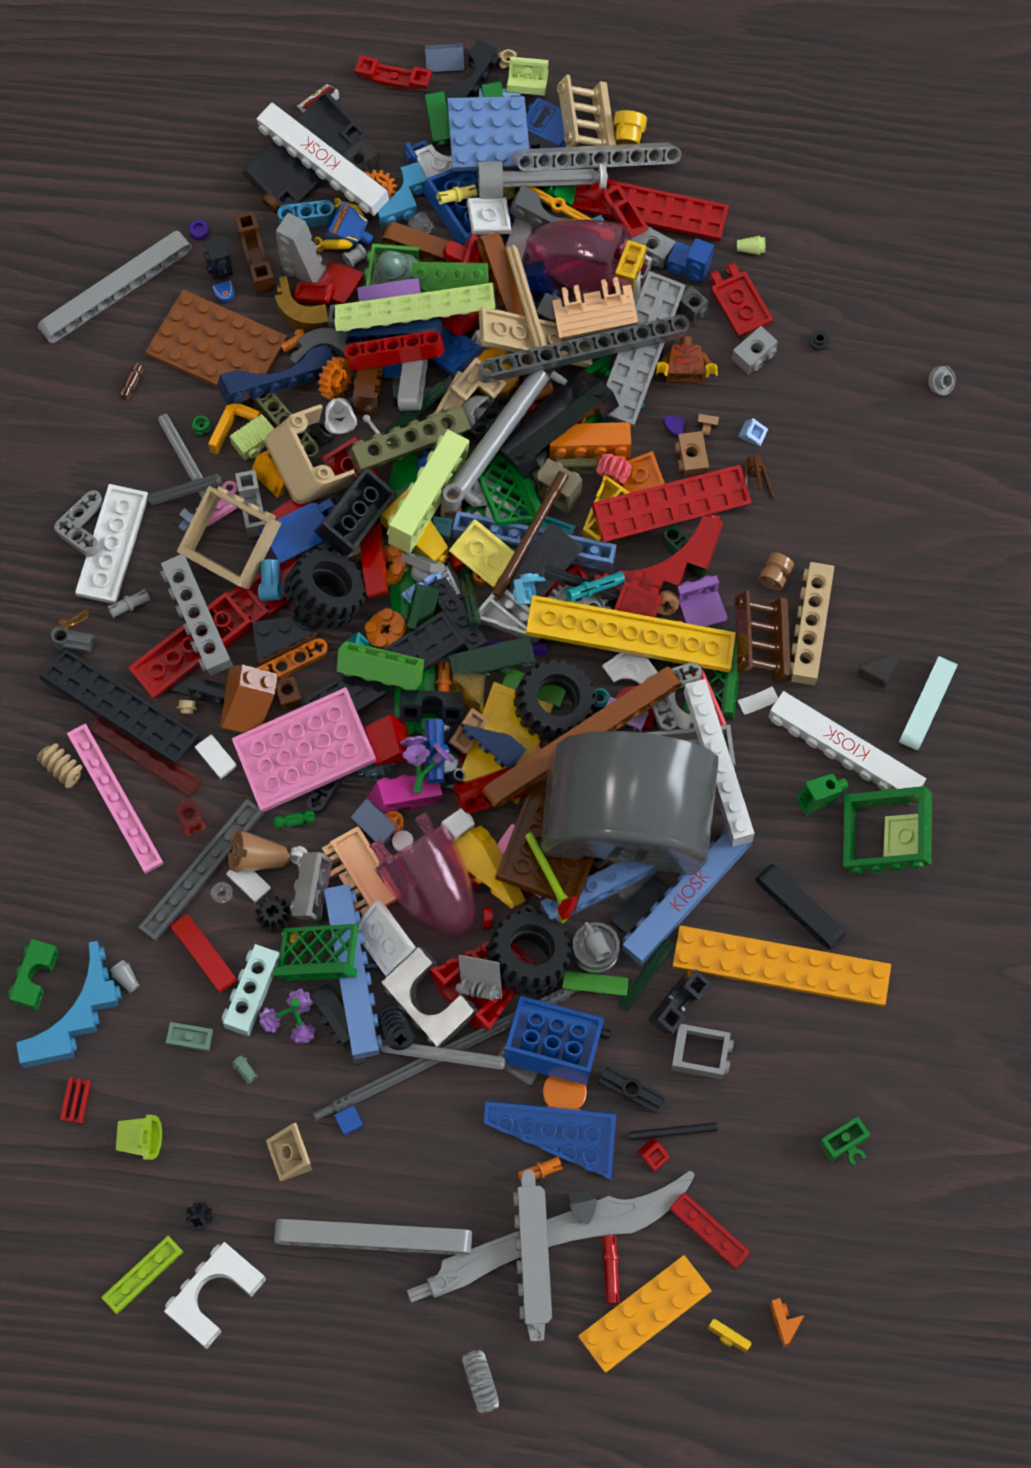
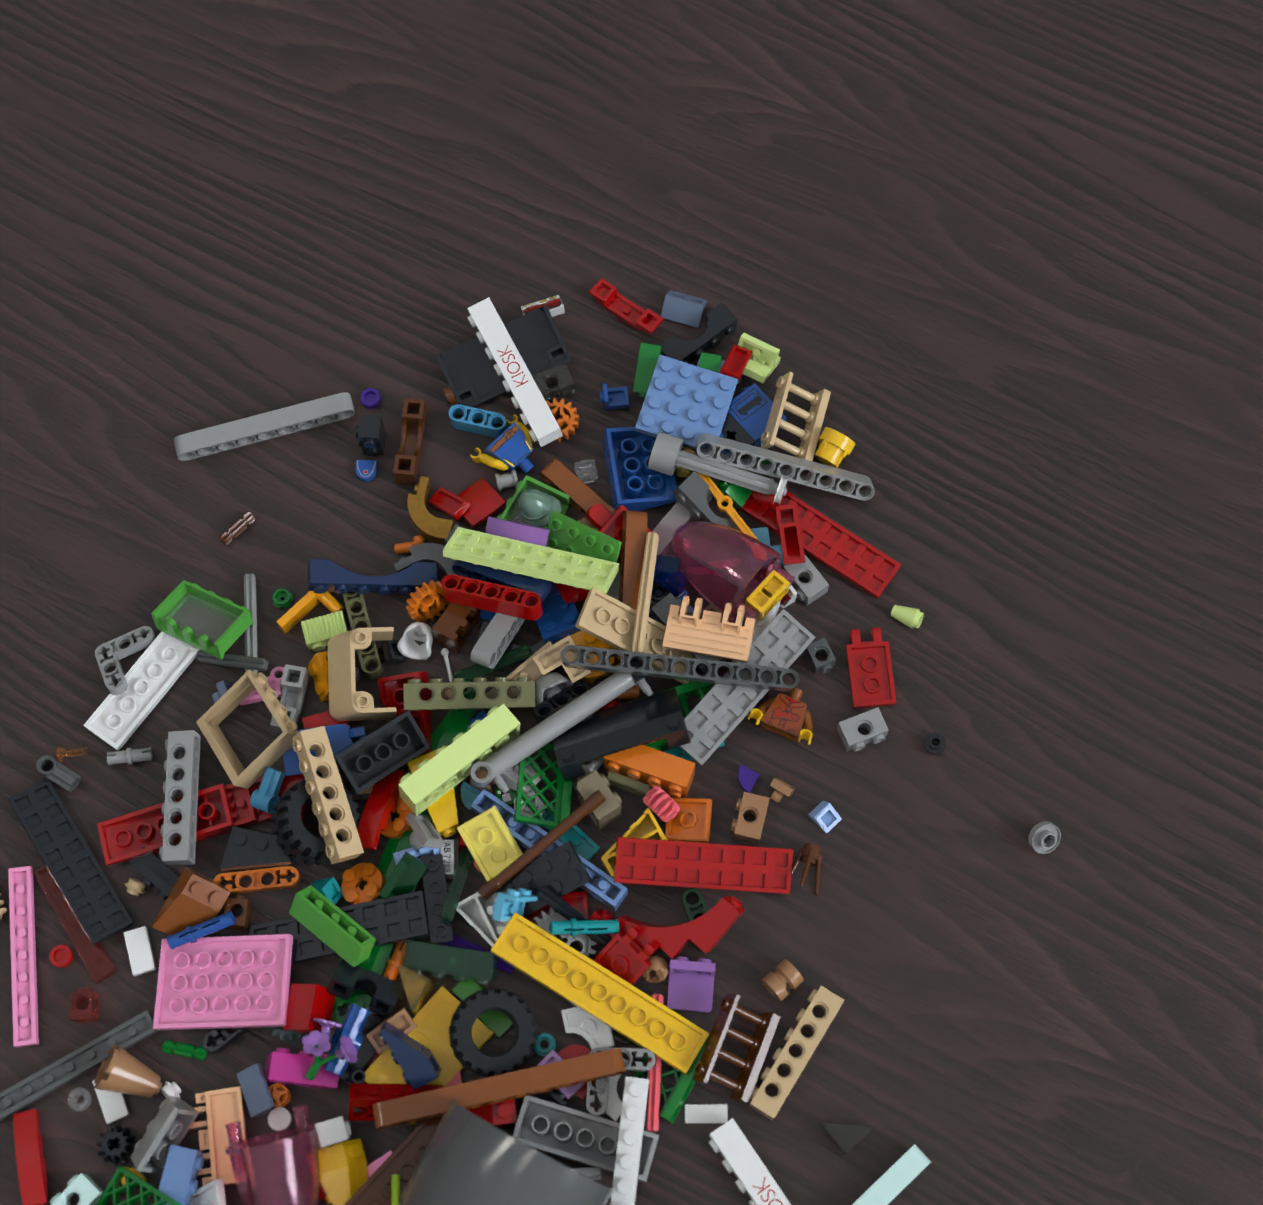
camera: 25 degrees right, 0 degrees up
(141, 464) = (202, 619): none -> window
(148, 787) = (61, 956): none -> red tile
(213, 341) = (334, 518): dark orange plate -> none
(258, 721) = (193, 933): none -> blue pin
(297, 251) = (446, 458): light grey wedge -> none
(329, 558) = (324, 762): none -> tan brick
(402, 204) = (575, 444): dark azure arch -> none
(432, 161) = (622, 411): white tile -> none
(456, 194) = (627, 456): light yellow pin -> none
(489, 215) = (650, 490): white plate -> none
(506, 55) = (745, 327): tan plate -> none
(514, 83) = (736, 362): none -> red tile
(691, 261) = (837, 610): blue brick -> none

